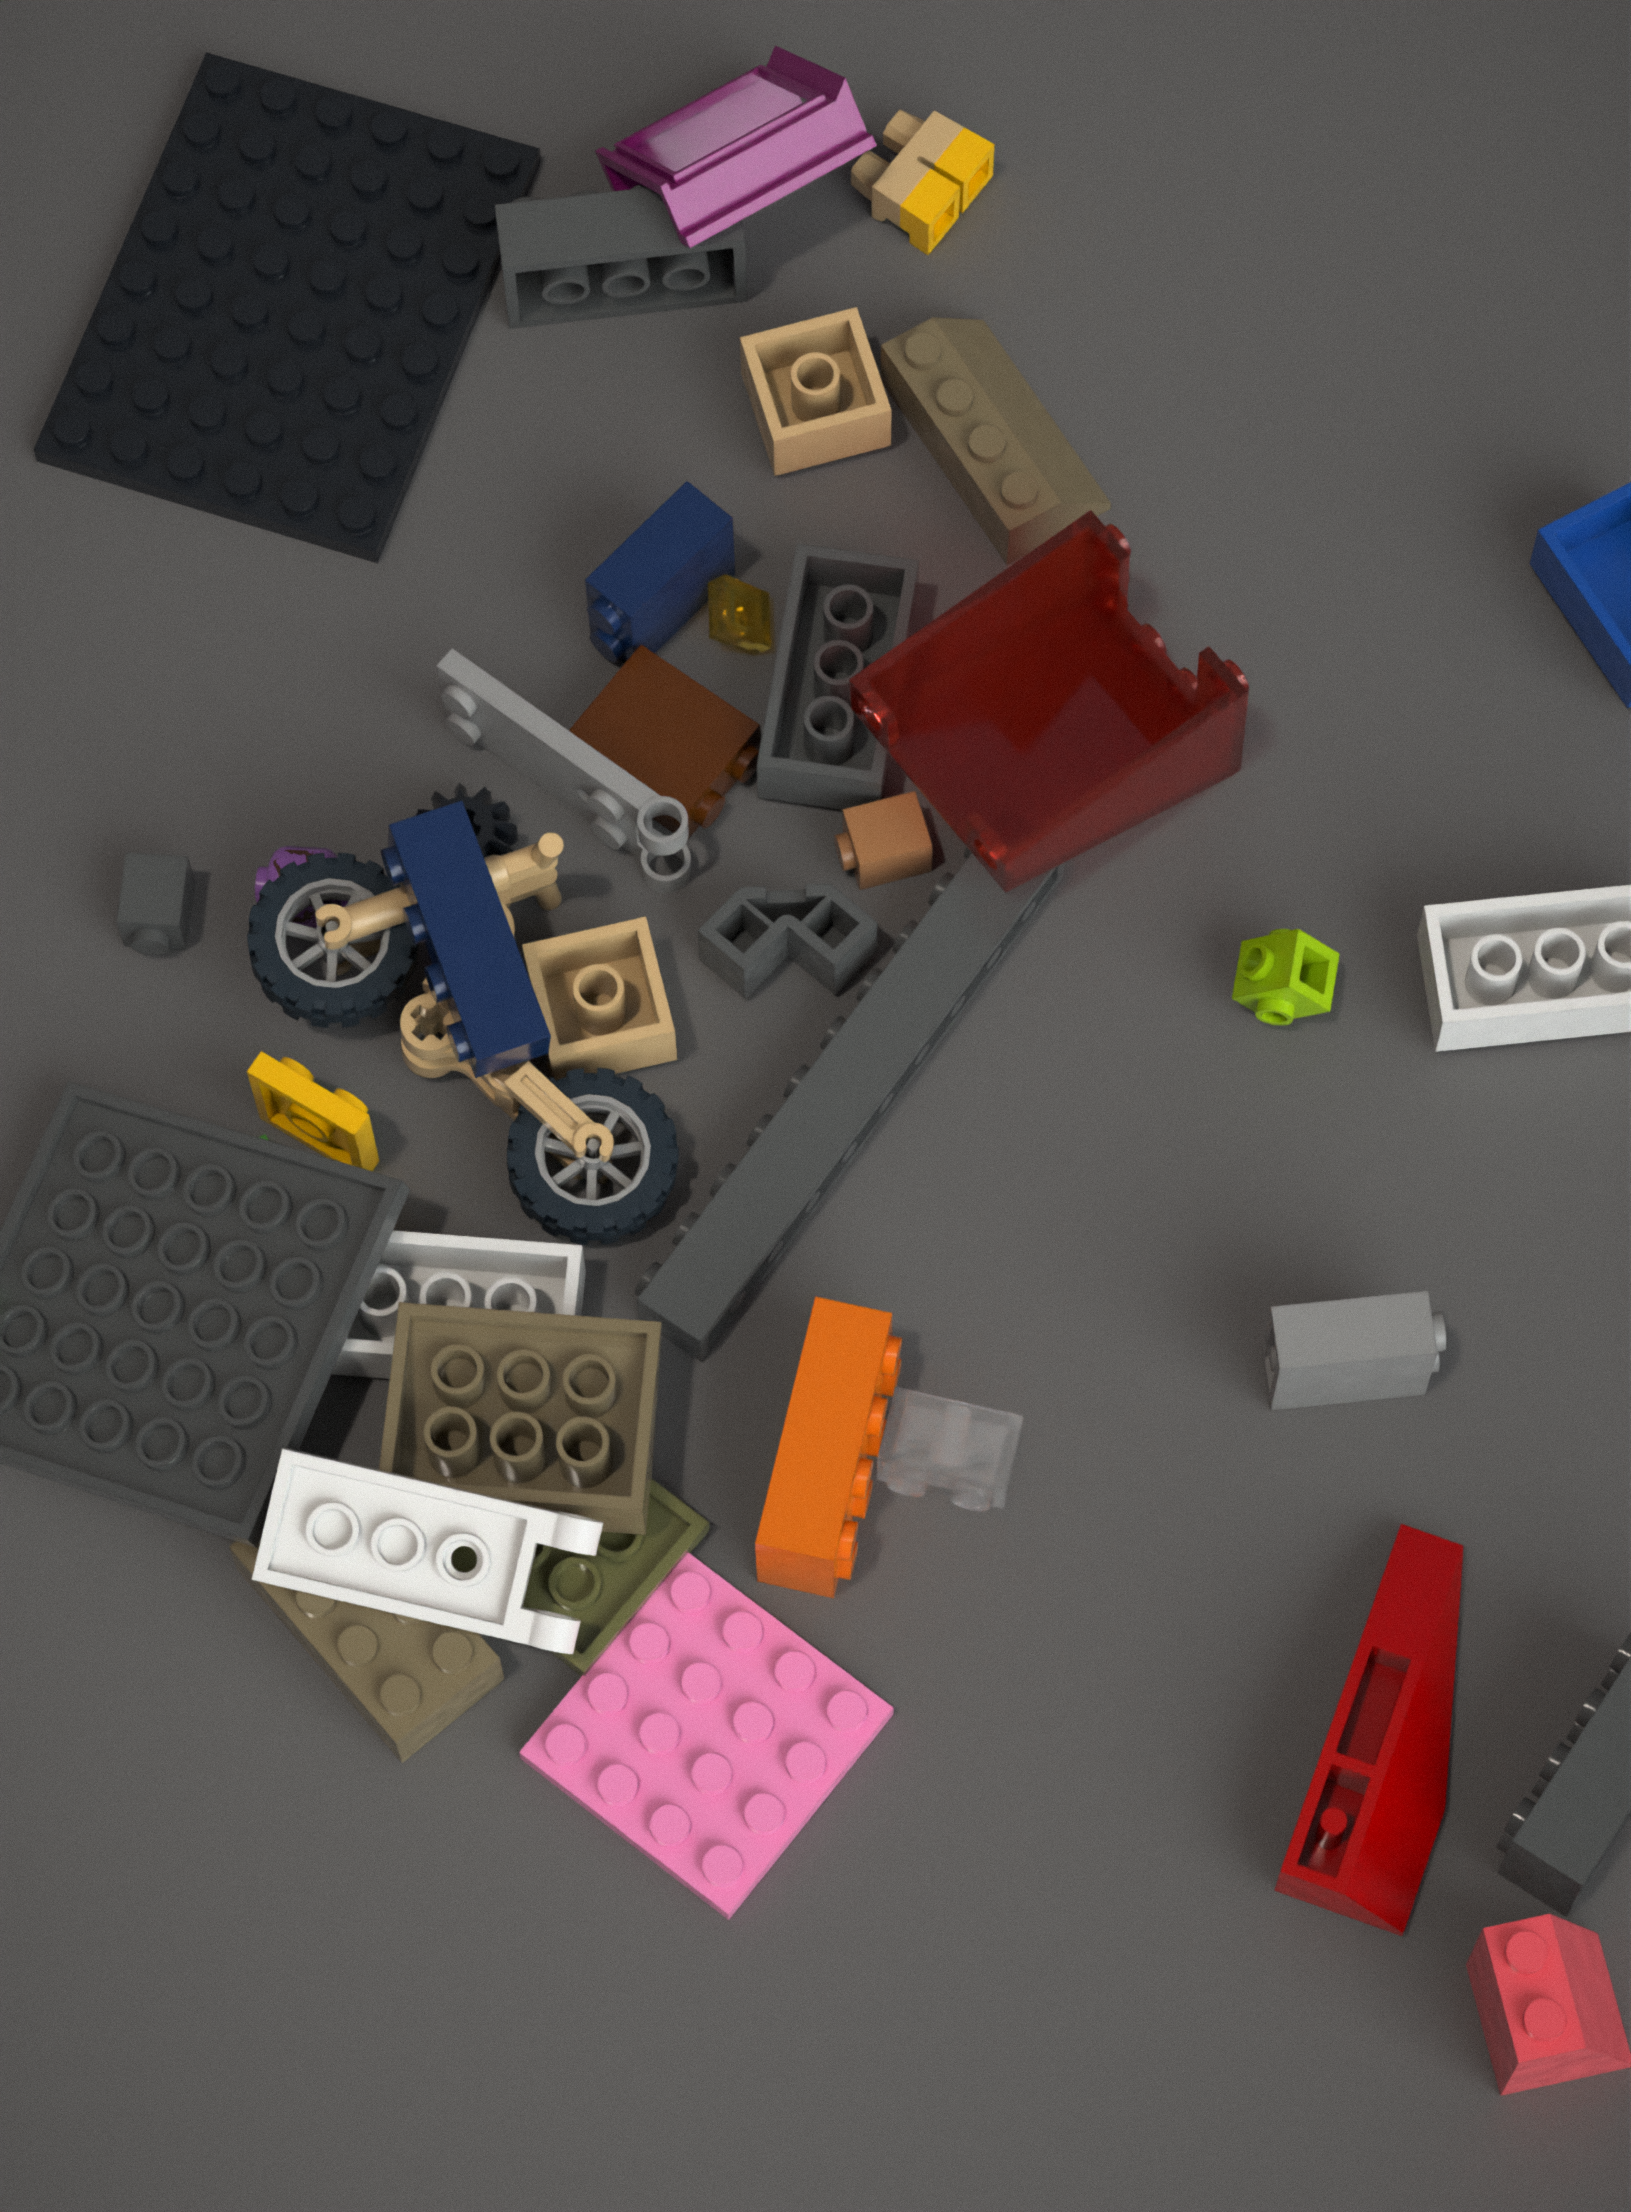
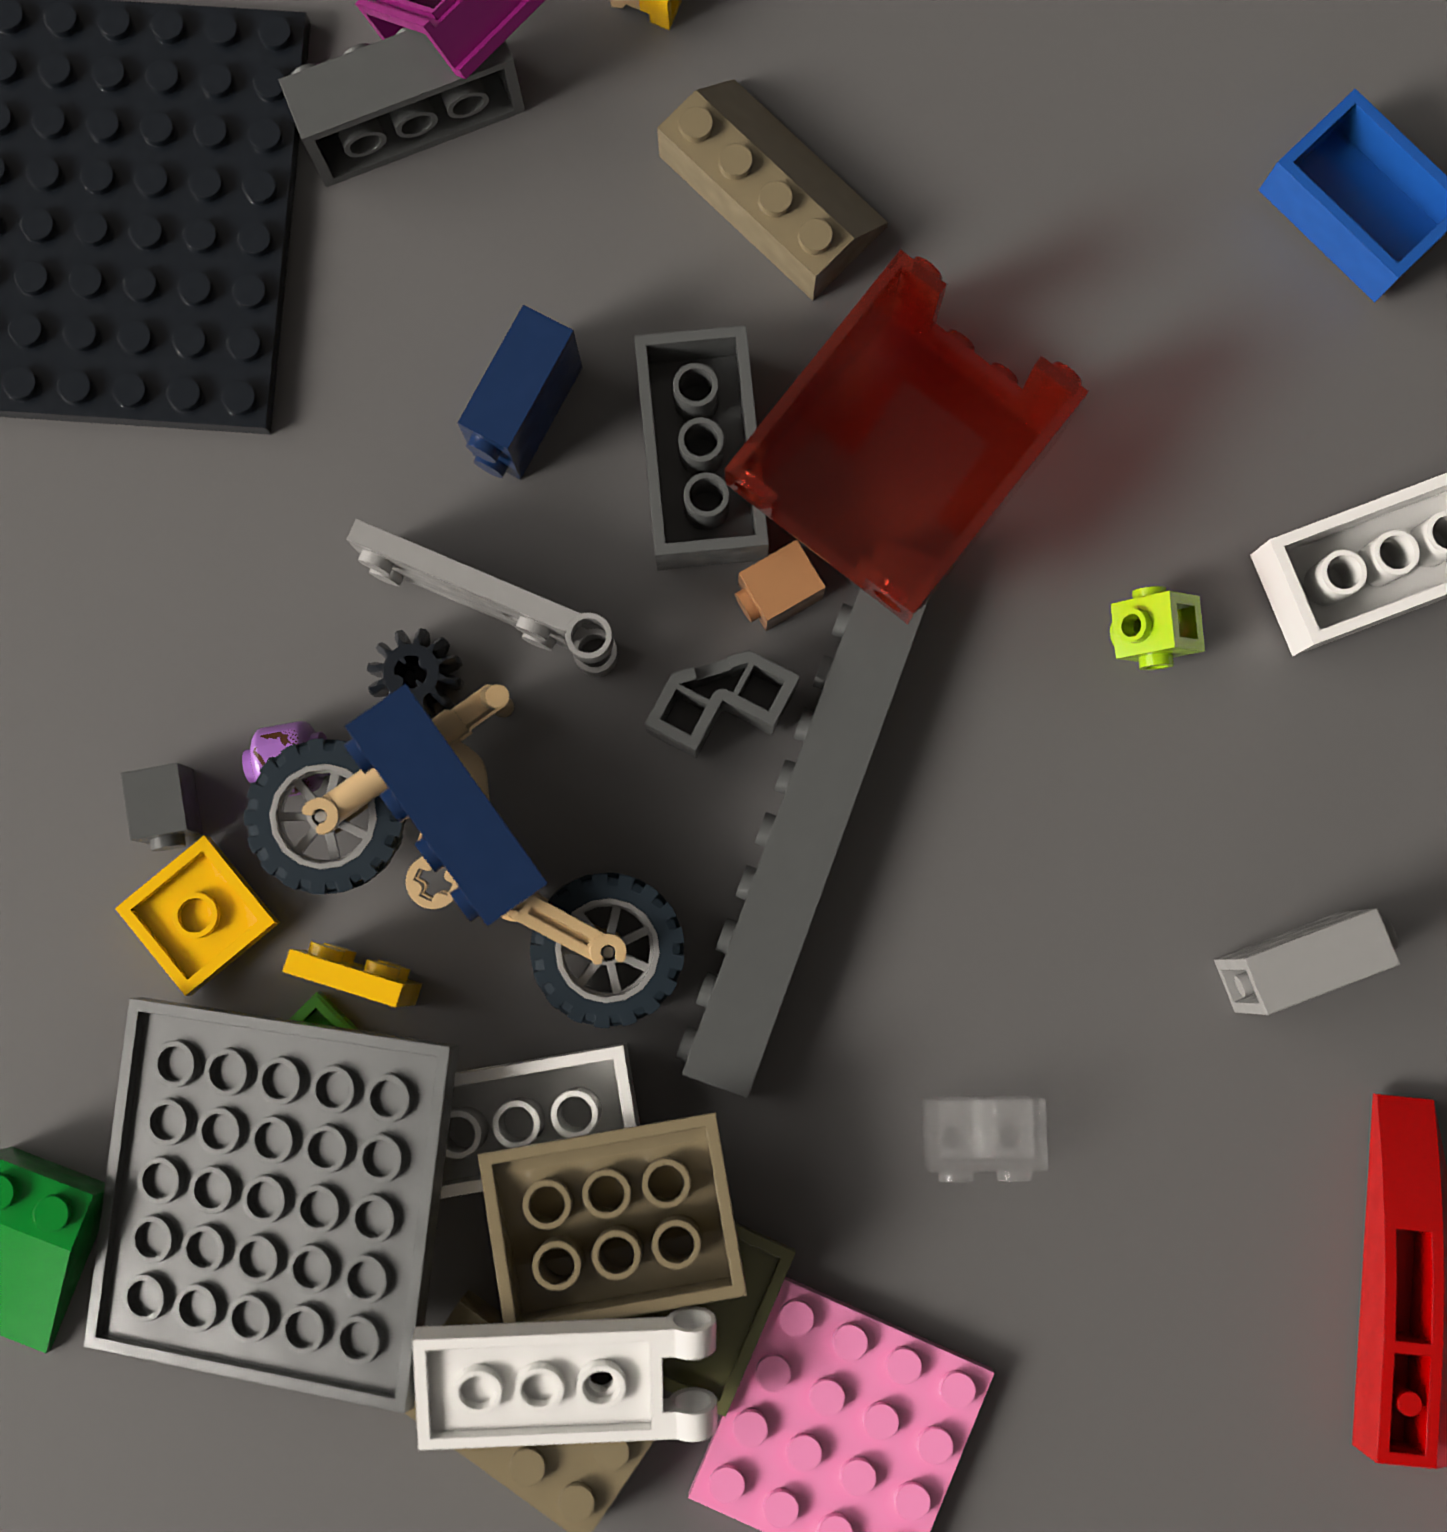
camera: 15 degrees left, 15 degrees up
(160, 1024) = (197, 915): none -> yellow plate
(602, 999) = (573, 803): tan brick -> none
(672, 736) = (566, 543): reddish brown brick -> none
(739, 615) = (597, 408): clear yellow plate -> none
(815, 391) = (609, 183): tan brick -> none
(824, 1448) = (882, 1173): orange brick -> none

